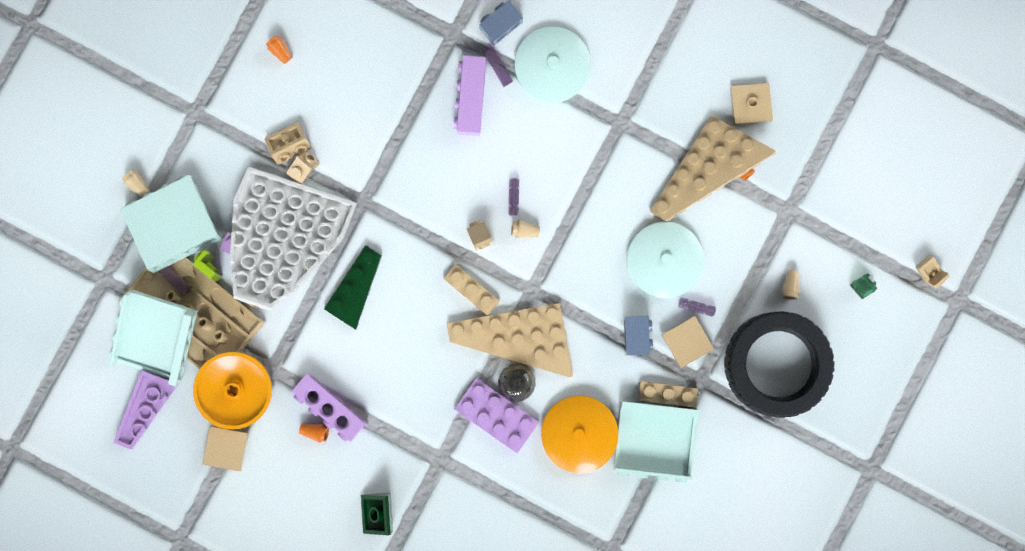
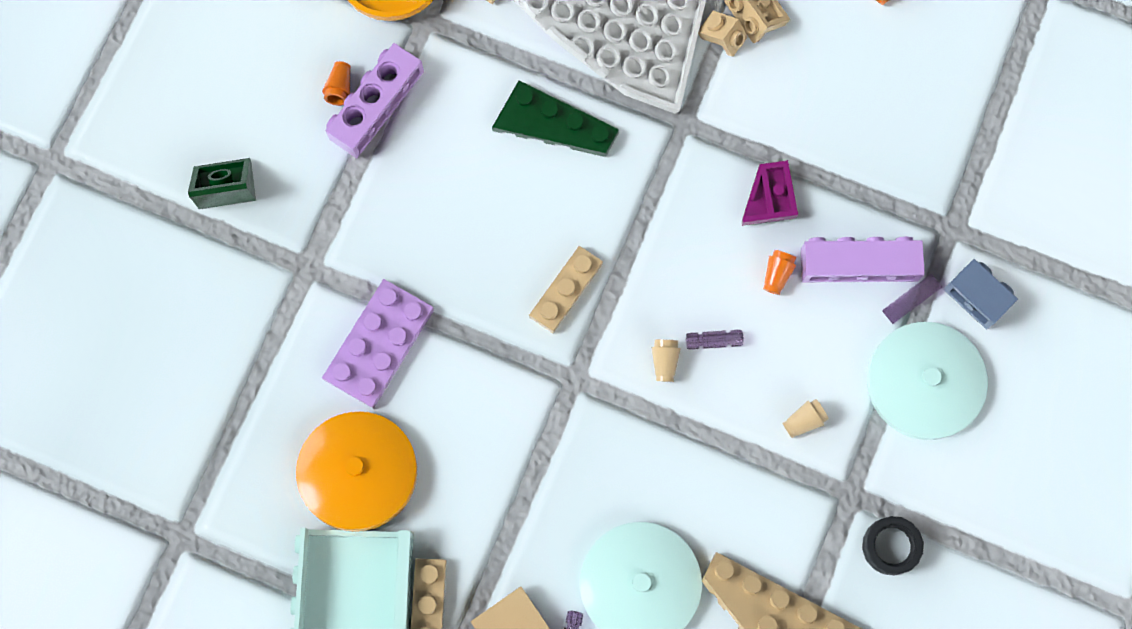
camera: 90 degrees right, 10 degrees down
(420, 149) = (771, 195): none -> magenta wing
(472, 150) = (778, 271): none -> orange cone
(479, 235) = (648, 290): tan slope -> none
(516, 372) = (435, 379): clear smoke cylinder -> none
(524, 336) = (501, 373): tan wing -> none
(571, 144) = (806, 418): none -> tan cone
(637, 335) = (516, 546): sand blue brick -> none
(669, 97) = (911, 532): none -> black tyre

